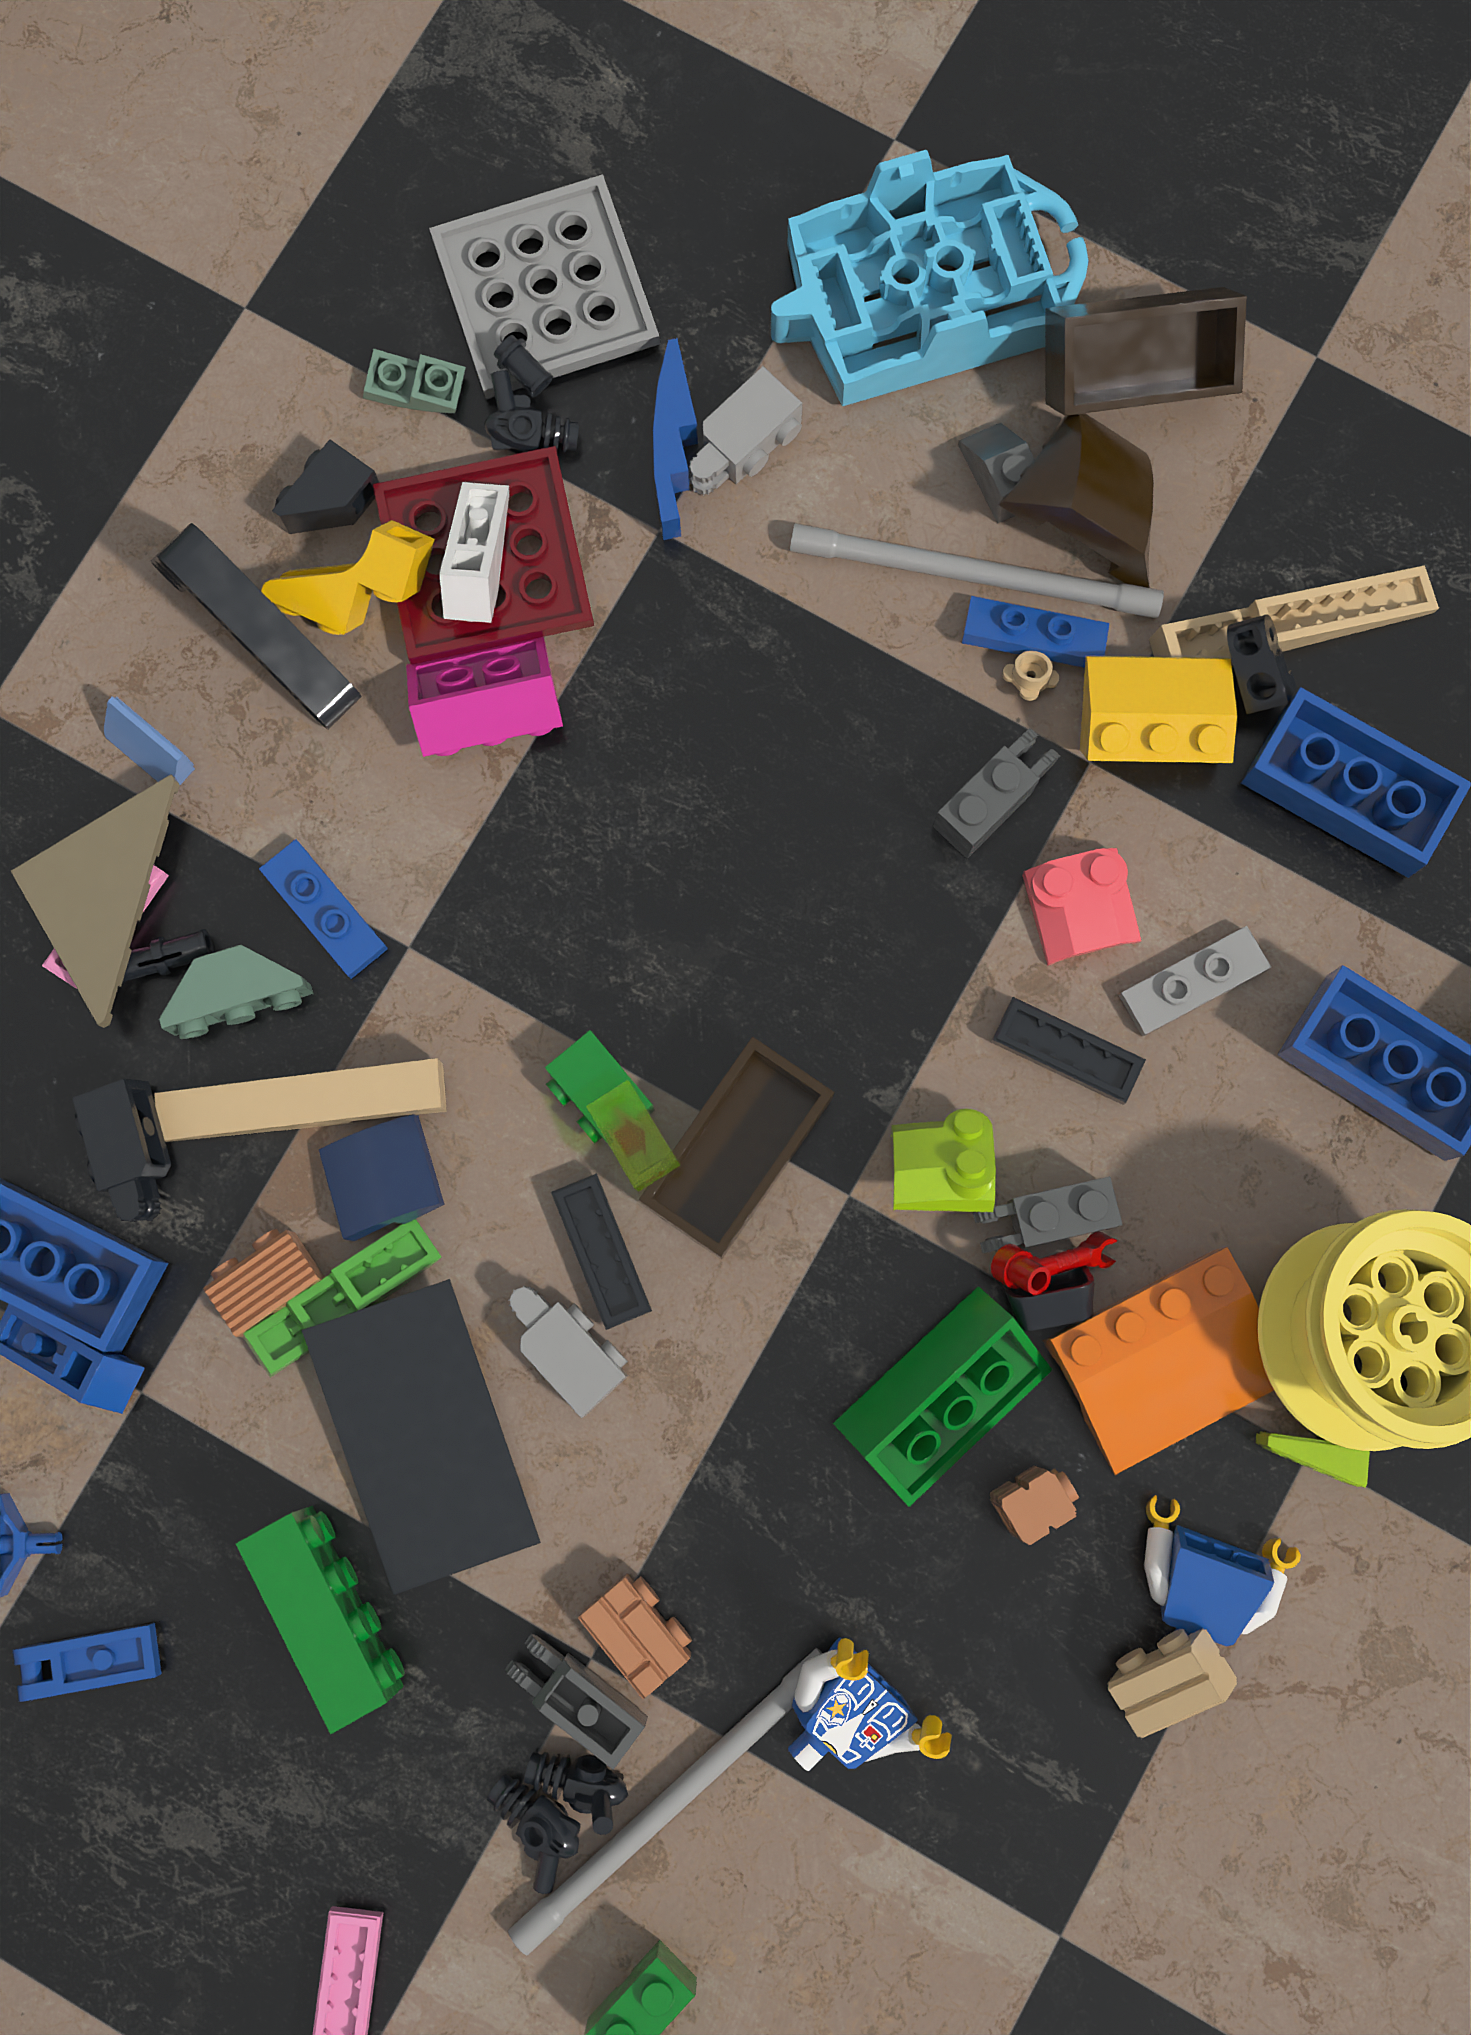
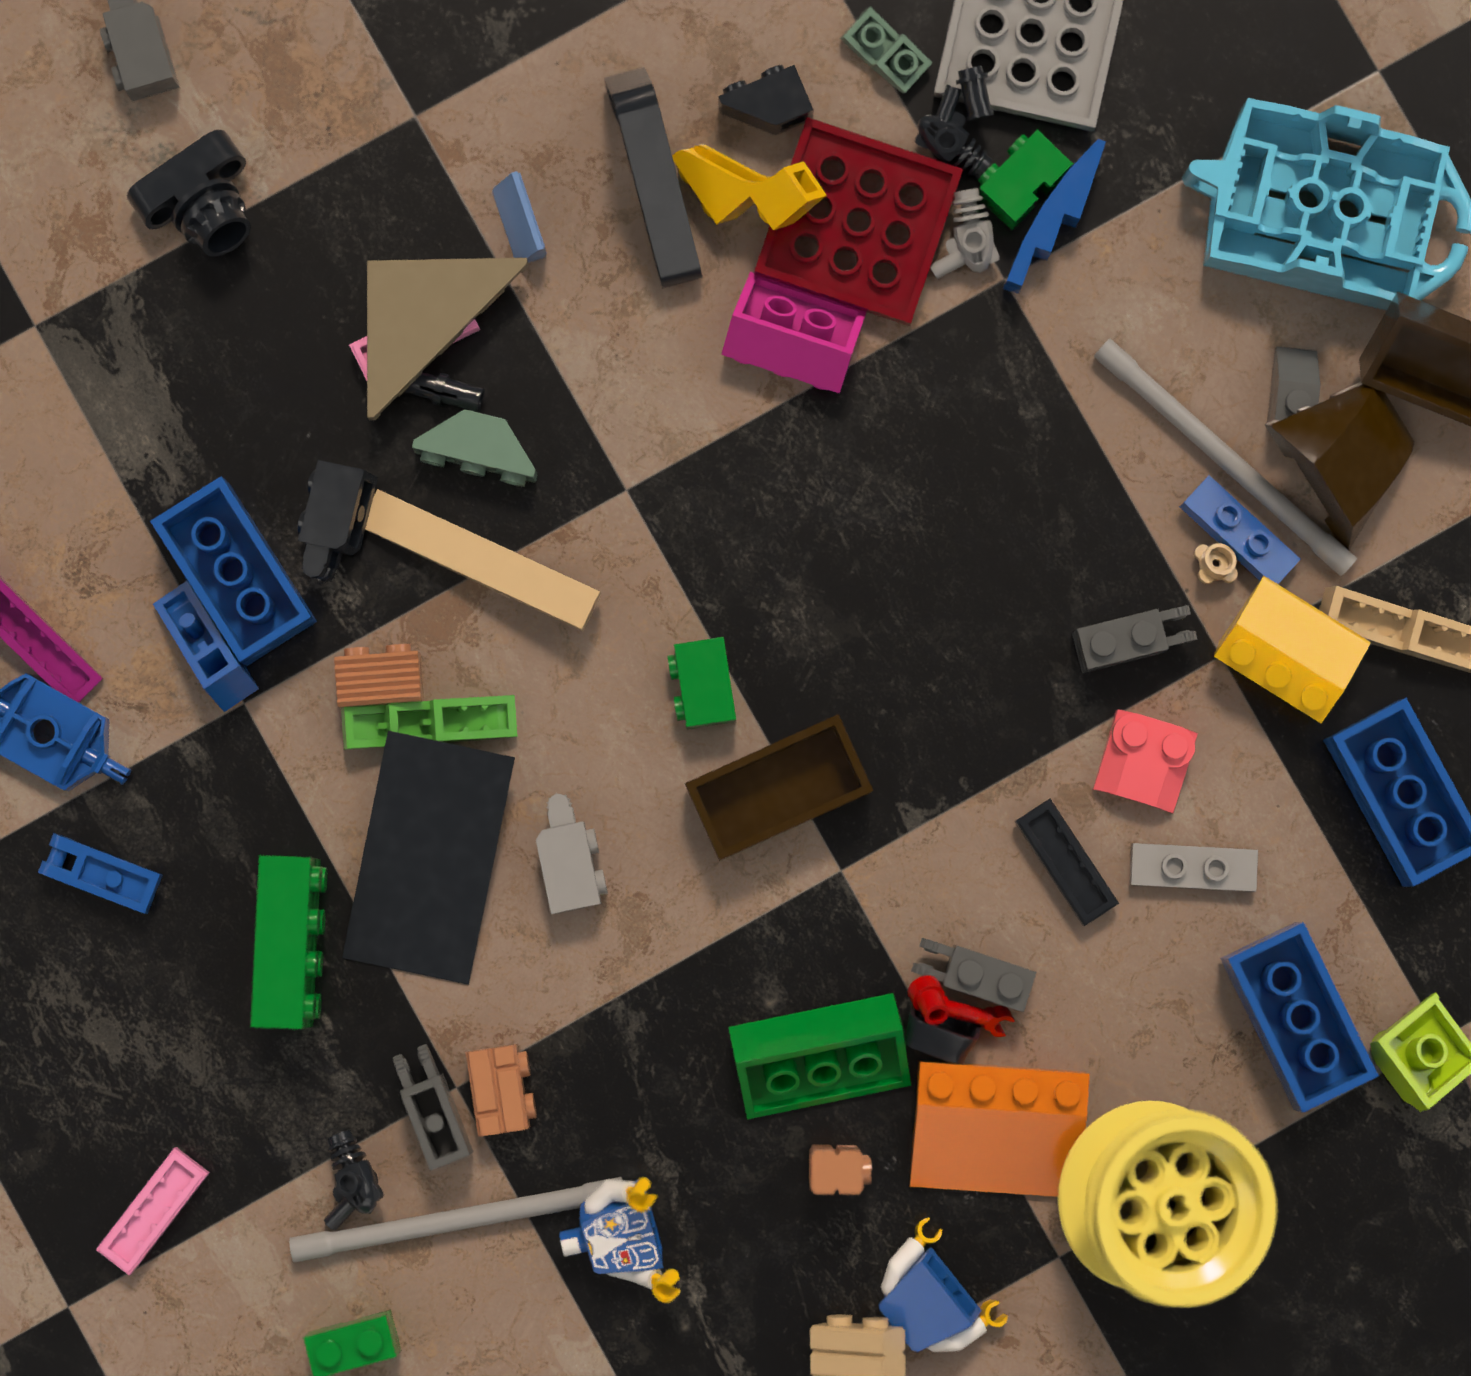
camera: 25 degrees right, 5 degrees up
(323, 908) = (580, 423): blue plate -> none
(381, 1177) = (507, 652): dark blue slope -> none
(474, 553) = (852, 220): white slope -> none
(585, 1785) = (402, 1170): black piece -> none
(601, 1251) = (635, 802): black plate -> none
(605, 506) = (972, 240): none -> light grey piece
(619, 416) = (1031, 168): none -> green brick
(633, 1135) = (708, 734): clear neon green tile -> none
(745, 432) = (1115, 243): light grey hinge -> none
(945, 1164) = (922, 890): lime slope -> none
(1259, 664) = (1389, 661): black leg -> none
(1320, 1455) = (1065, 1262): lime slope -> none

